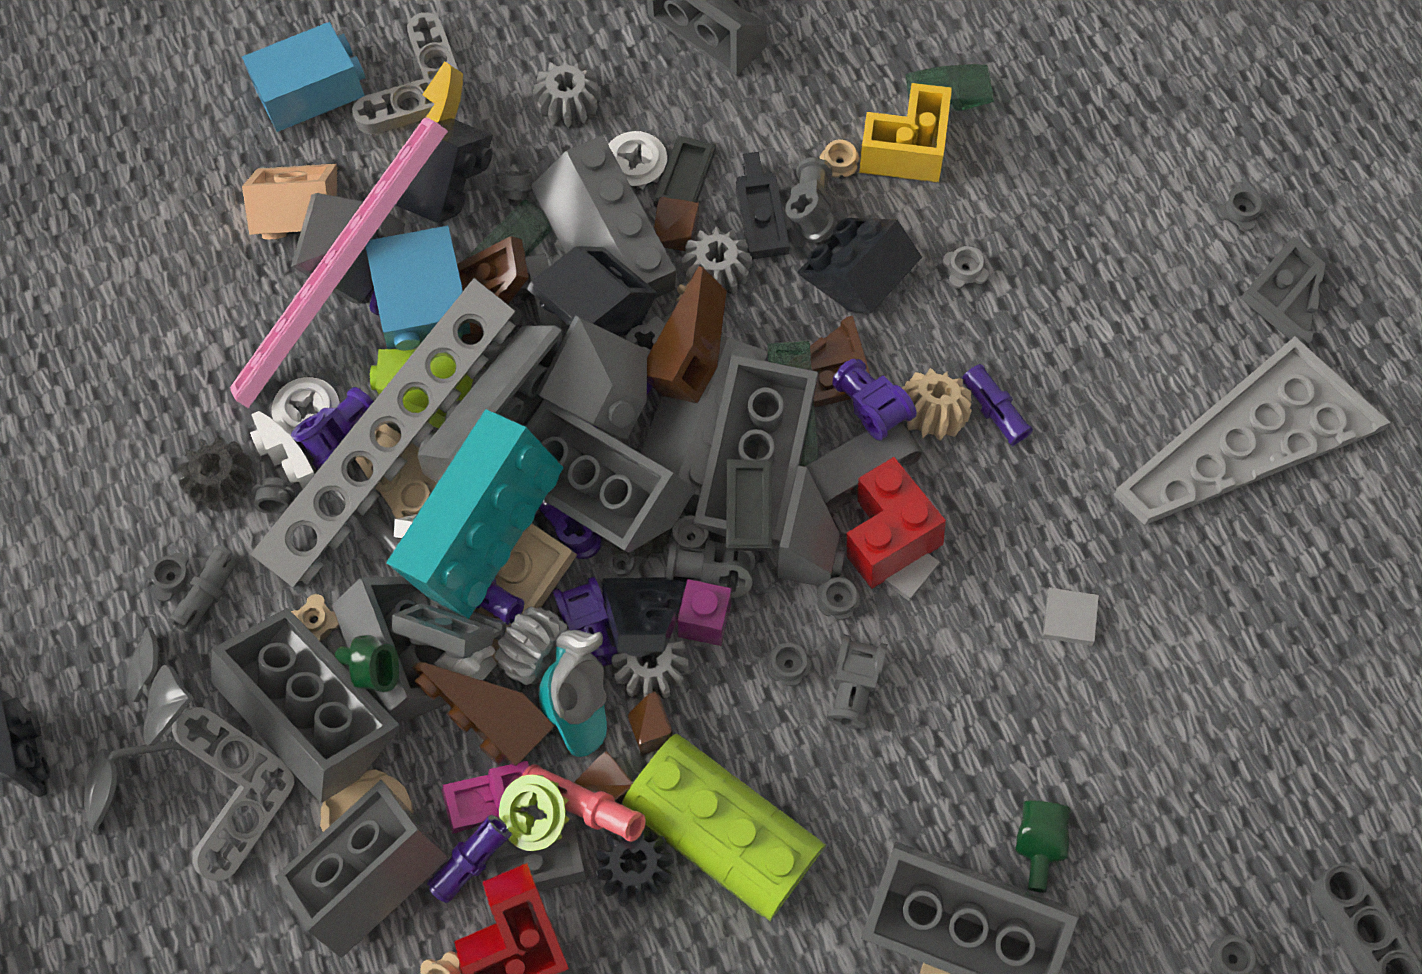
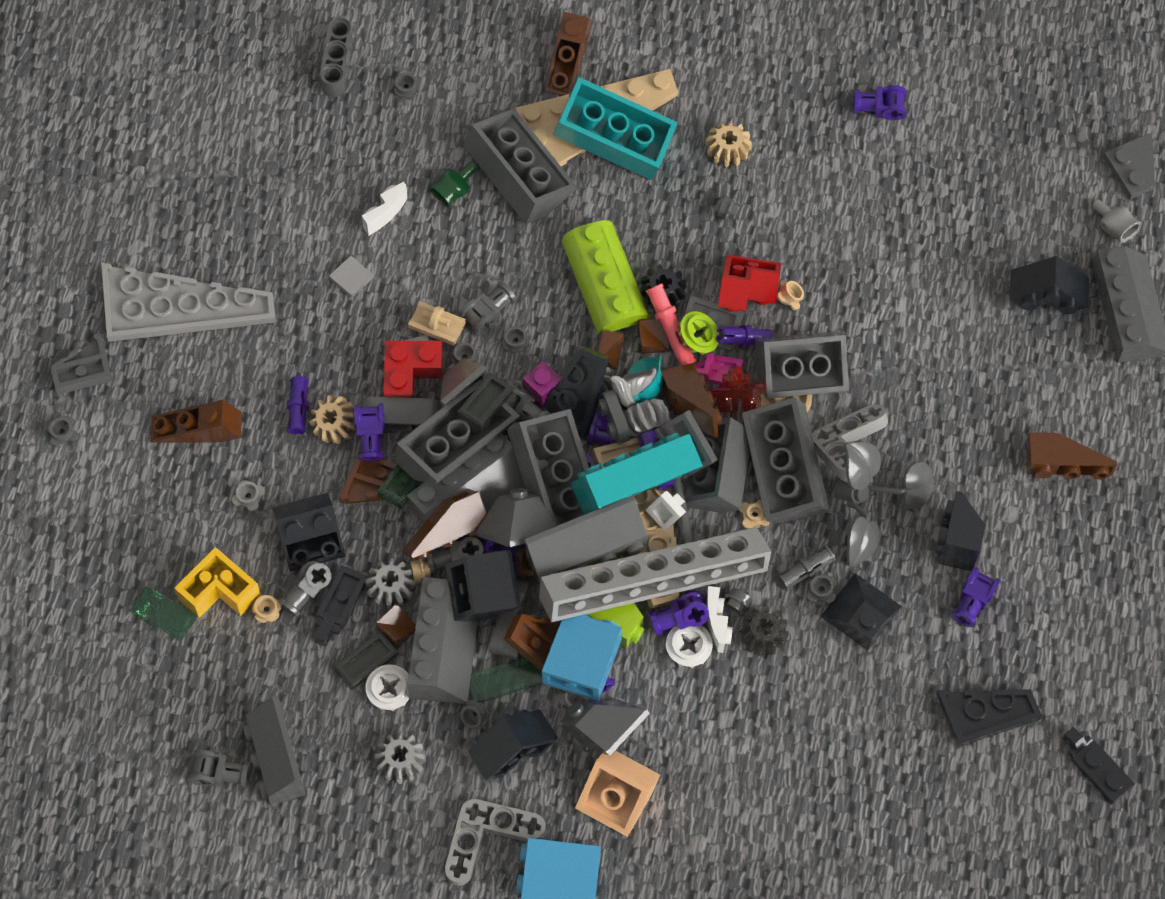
camera: 150 degrees left, 0 degrees up
(97, 576) = (861, 611): none -> black slope
(337, 261) = (618, 691): bright pink tile -> none
(370, 663) = (740, 445): dark green piece -> none
(426, 762) = (734, 387): none -> clear red hips
(445, 93) = (485, 788): yellow slope -> none
(556, 593) = (617, 425): none -> dark grey plate
(904, 608) = (437, 323): none -> tan hips
(1090, 304) = (198, 424): none -> reddish brown slope
(1102, 744) = (391, 202): none -> white slope

